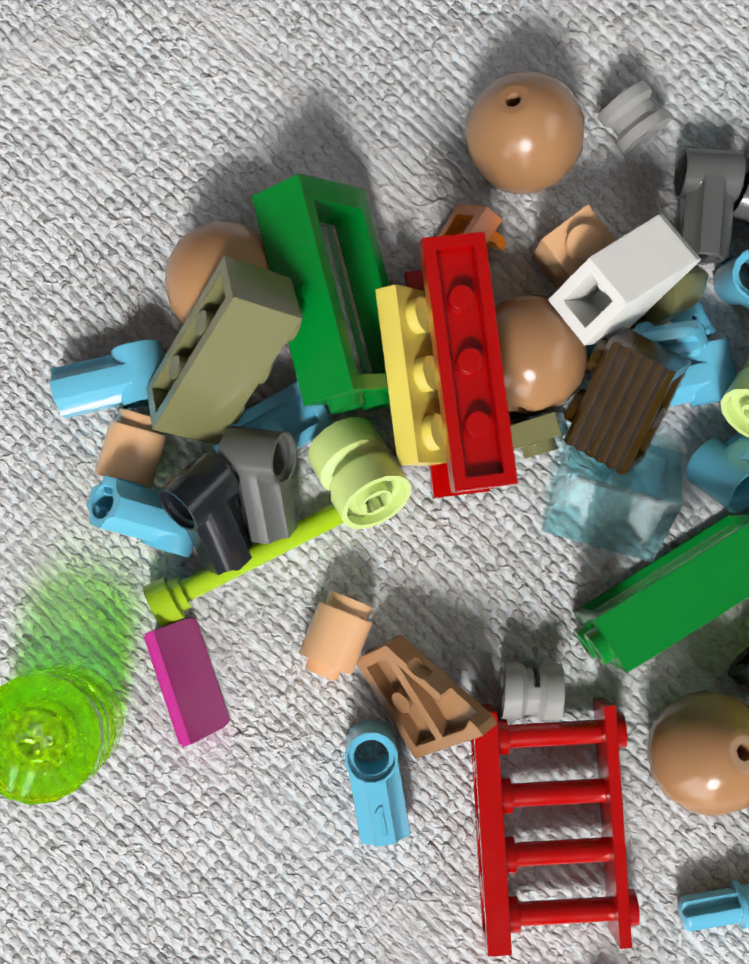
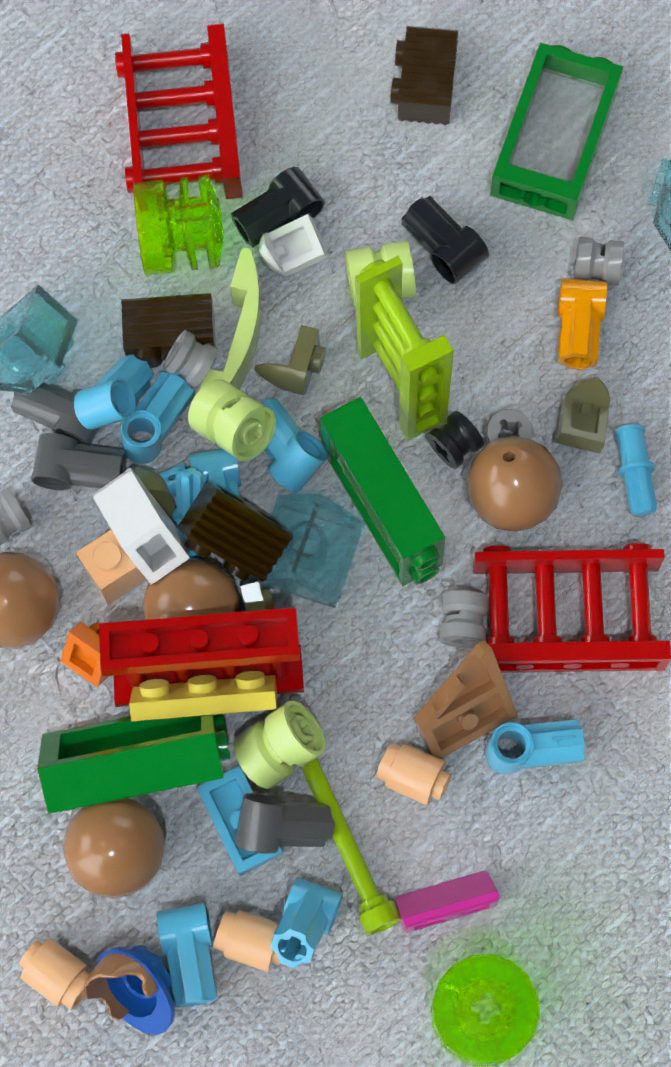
camera: 80 degrees left, 15 degrees down
(75, 319) = (133, 987): none -> blue piece
(85, 230) = (55, 973): none -> light nougat brick
(203, 506) = (300, 870): black piece -> none
(223, 351) = (176, 841): olive brick -> none

